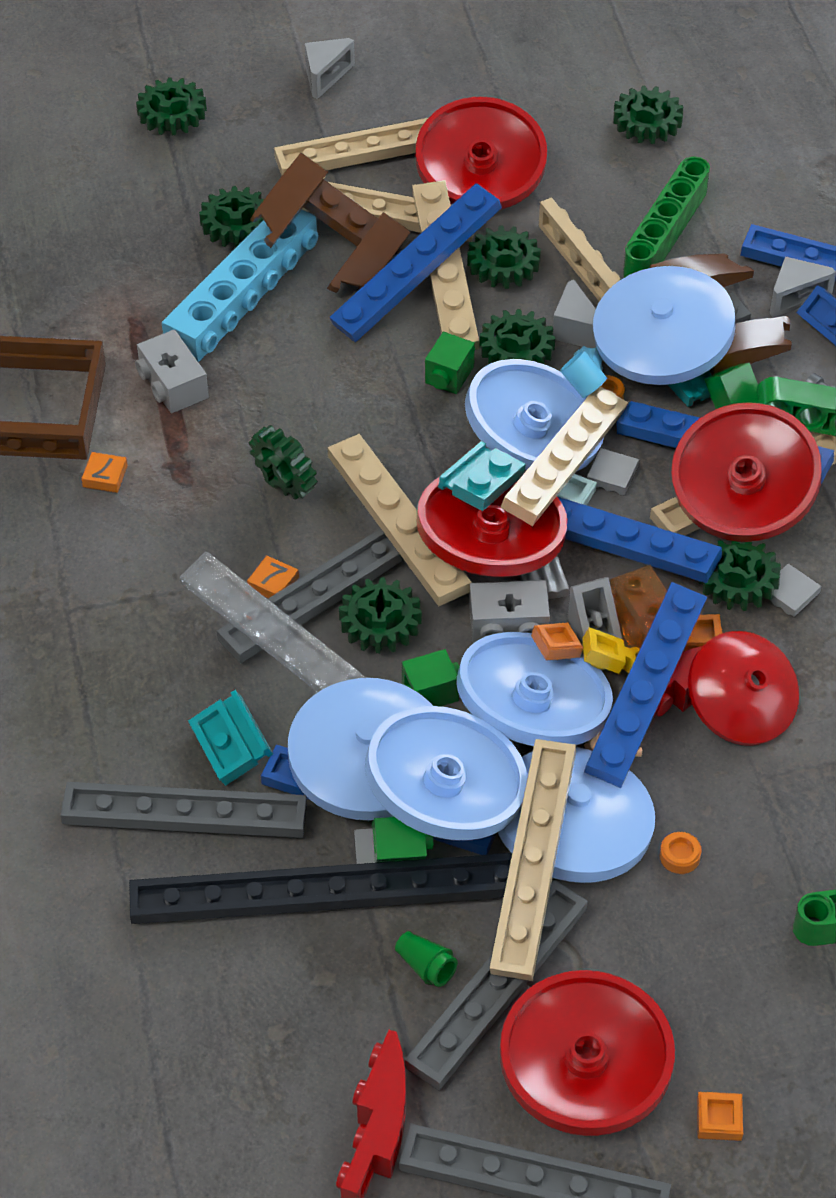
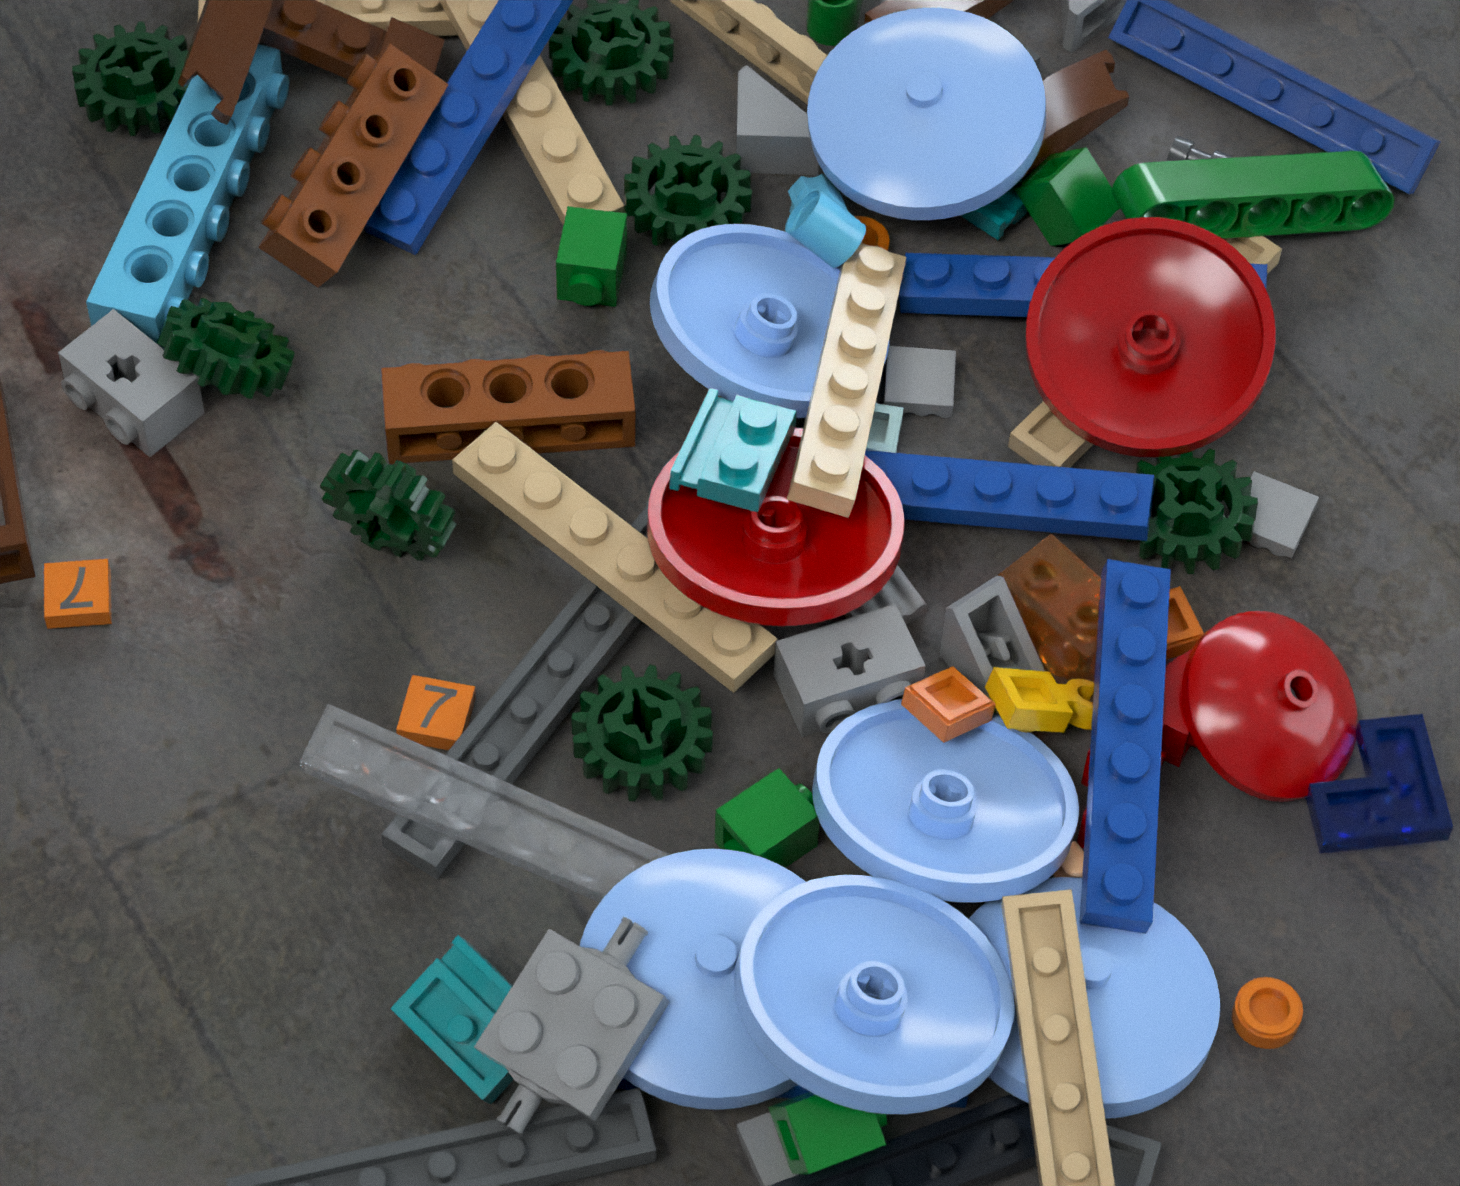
camera: 20 degrees left, 5 degrees up
(228, 363) = (226, 348): none -> dark green gear
(276, 748) = (572, 1025): none -> light grey plate
(332, 284) = (352, 165): none -> dark orange brick
(389, 430) = (540, 414): none -> dark orange brick
(797, 761) = (1395, 802): none -> clear blue plate

